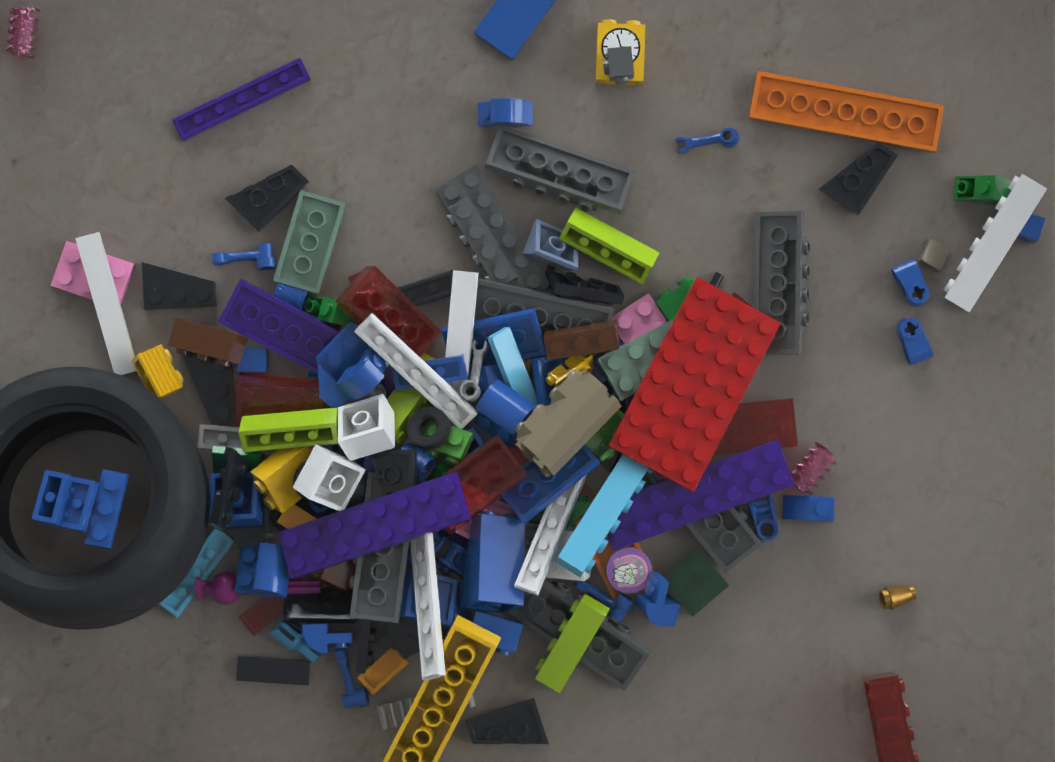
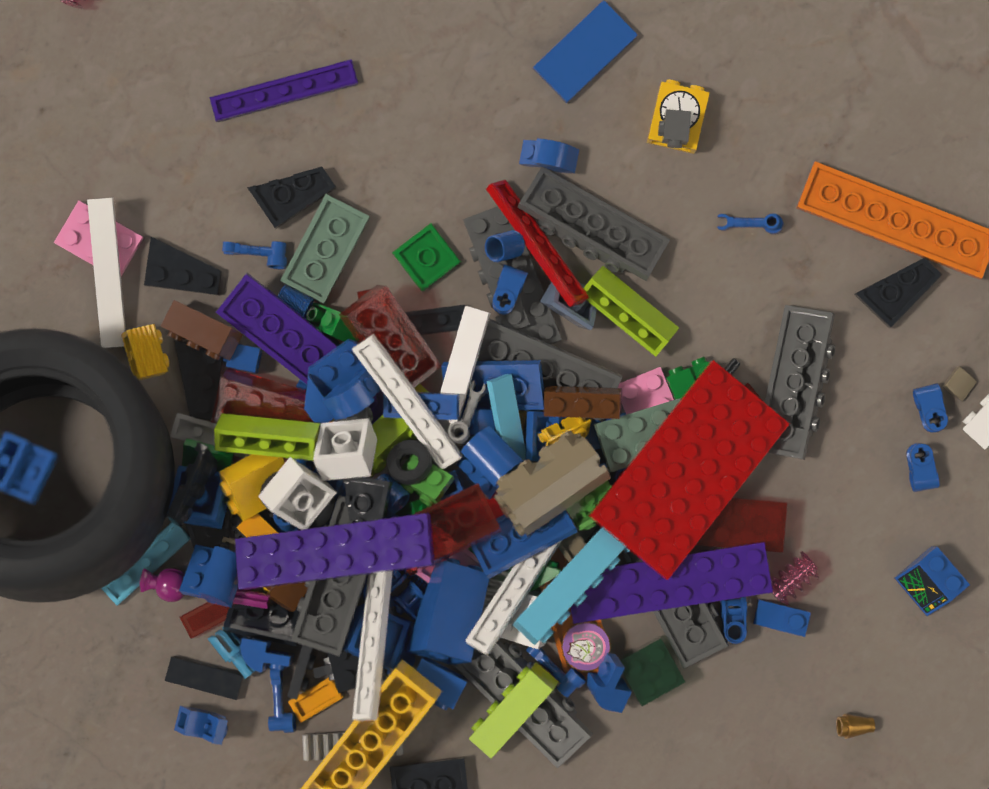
camera: 15 degrees right, 0 degrees up
(106, 509) = (61, 484): blue plate -> none
(279, 714) = (201, 724): none -> blue brick
(407, 232) = (426, 257): none -> green tile
(479, 207) = (504, 246): none -> blue piece
(491, 243) = (509, 285): none -> blue piece
(510, 198) = (537, 243): none -> red tile
(589, 290) = (603, 352): black wing -> none
(943, 445) = (931, 580): none -> slope

